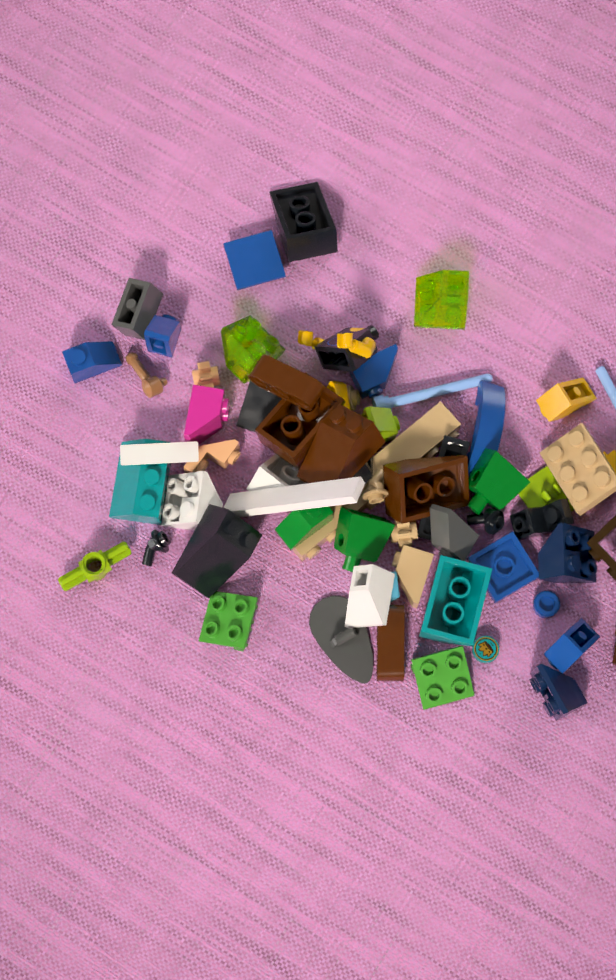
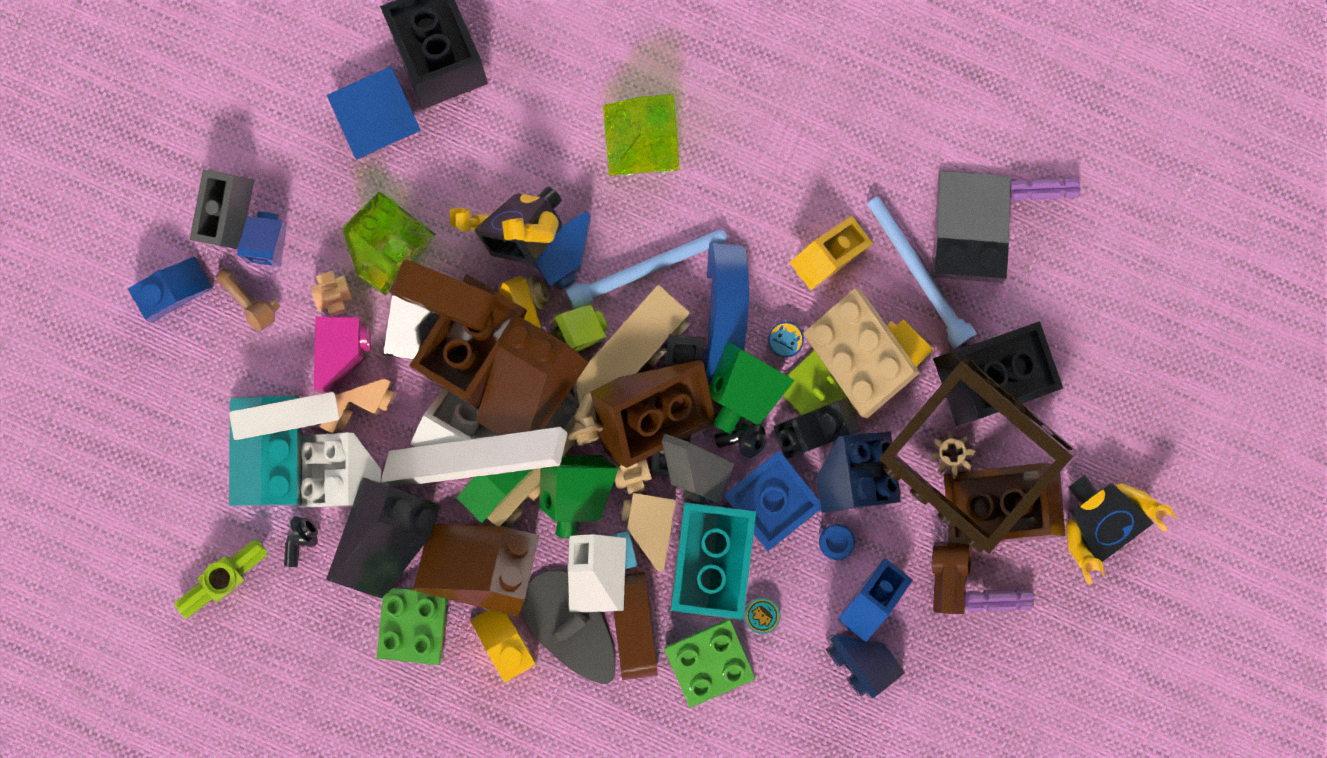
camera: 10 degrees left, 10 degrees up
(283, 581) = (478, 566): none -> reddish brown slope
(293, 642) = (503, 643): none -> yellow slope
(526, 456) = (785, 339): none -> tile

